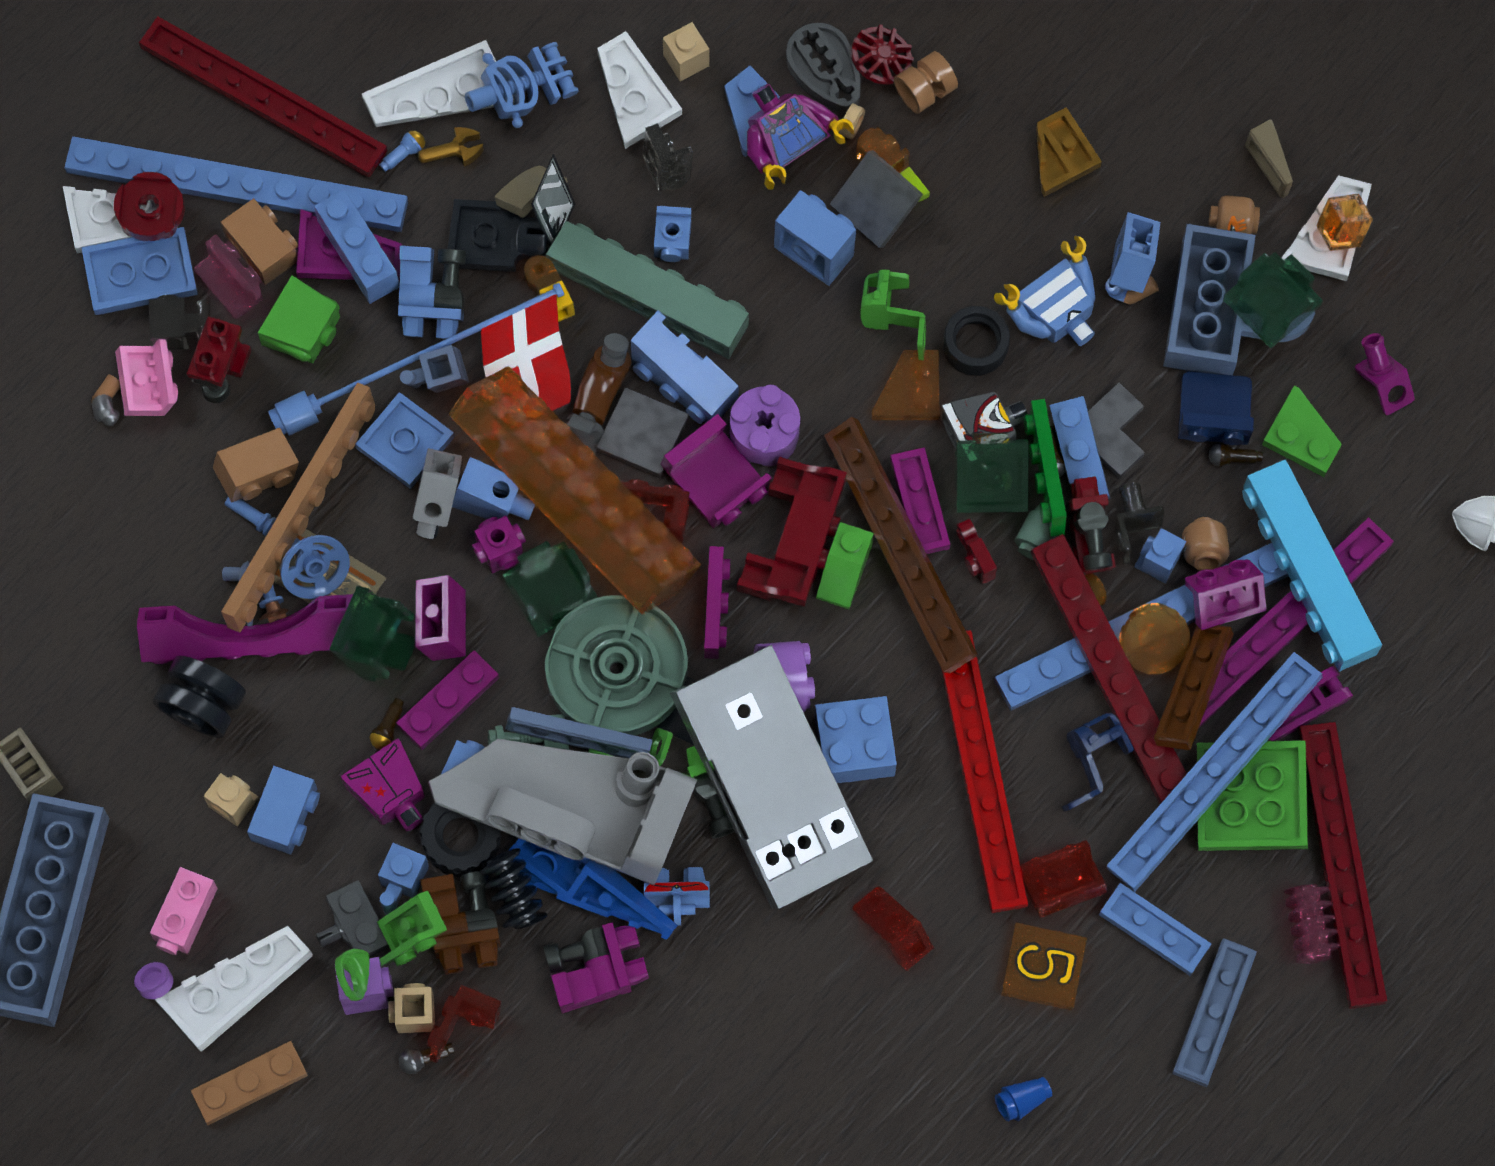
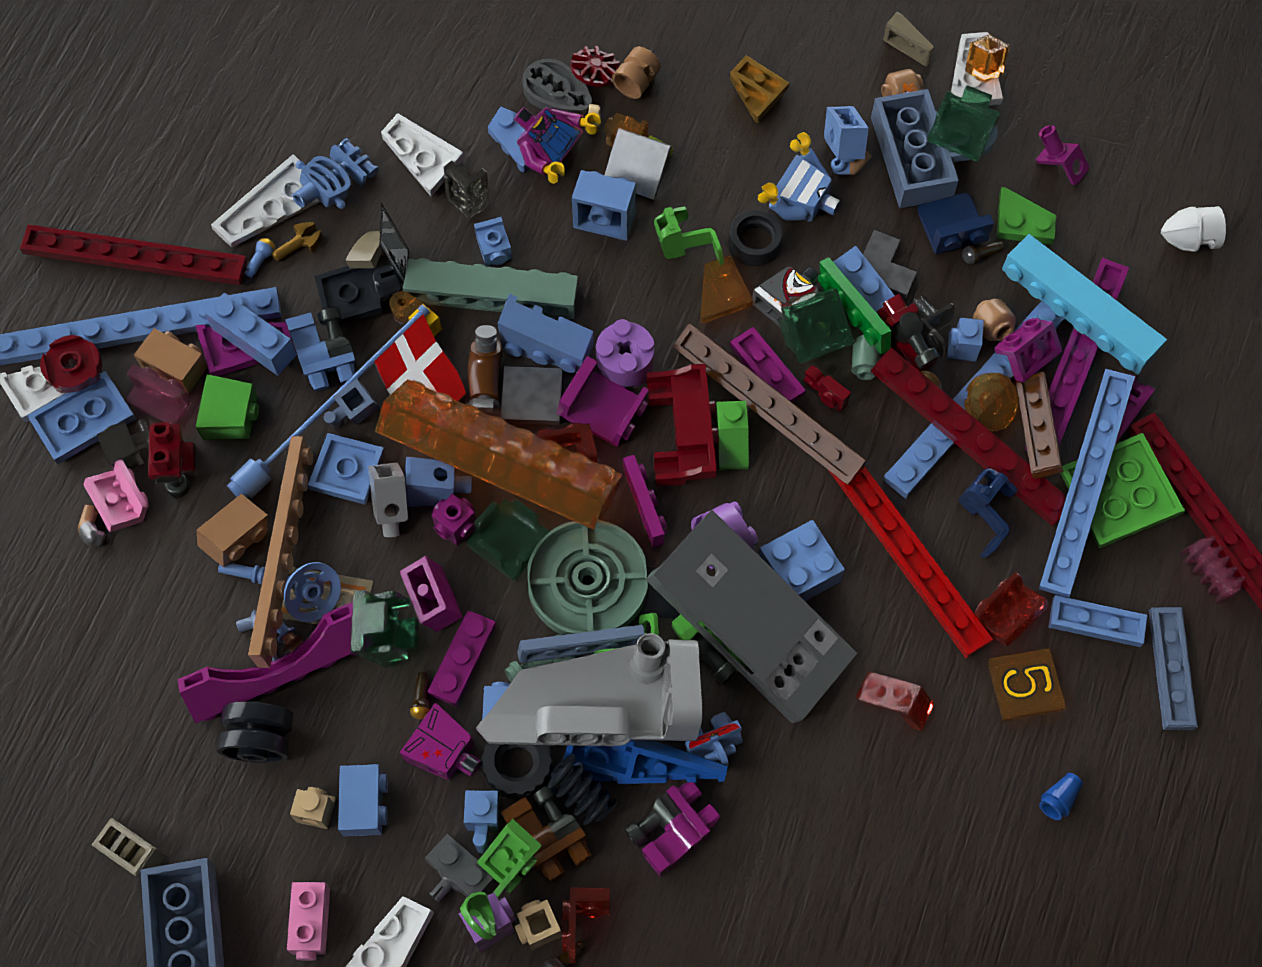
camera: 20 degrees left, 5 degrees down
(686, 51) = (449, 111): tan brick -> none

